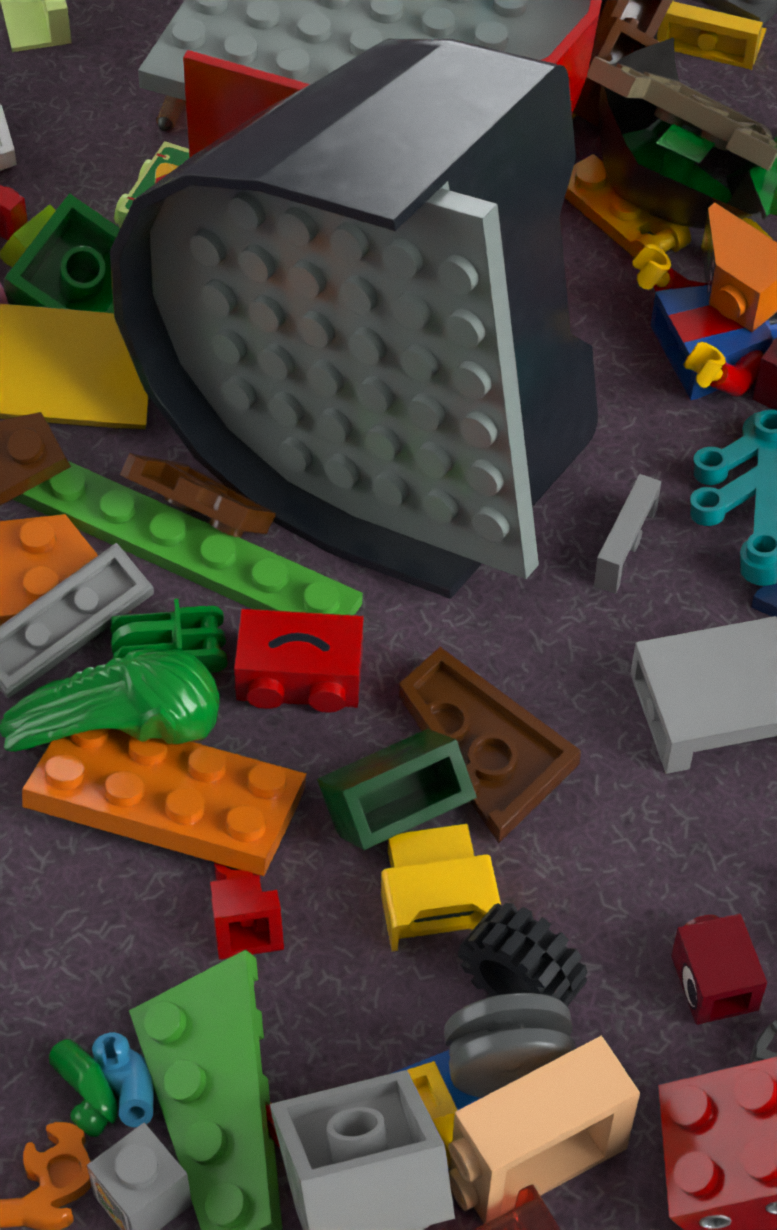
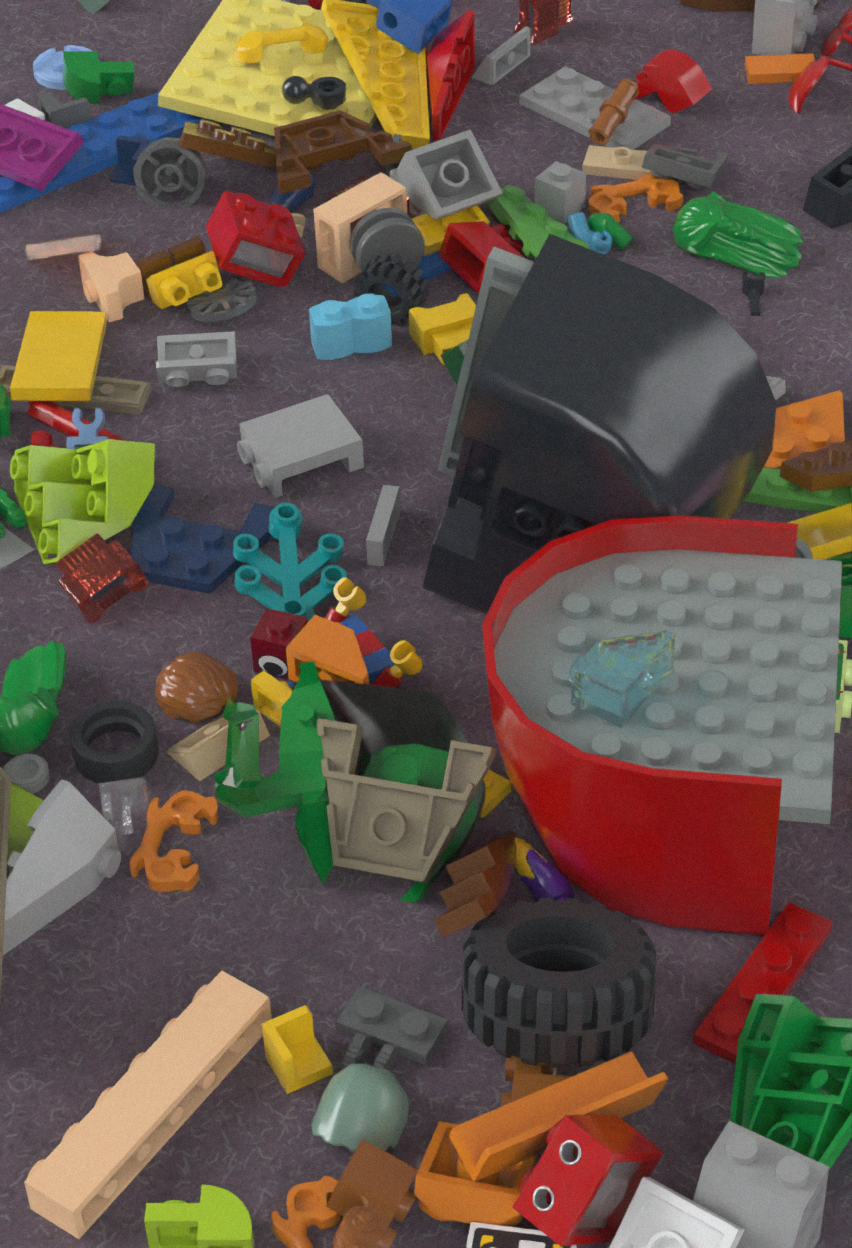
camera: 170 degrees right, 10 degrees down
(334, 1022) = (468, 248): none -> red brick
(505, 748) = (423, 395): reddish brown wing -> none
(615, 917) = (350, 327): none -> medium azure brick
(712, 34) = (403, 959): yellow panel -> none
(718, 968) = (281, 322): dark red brick -> none

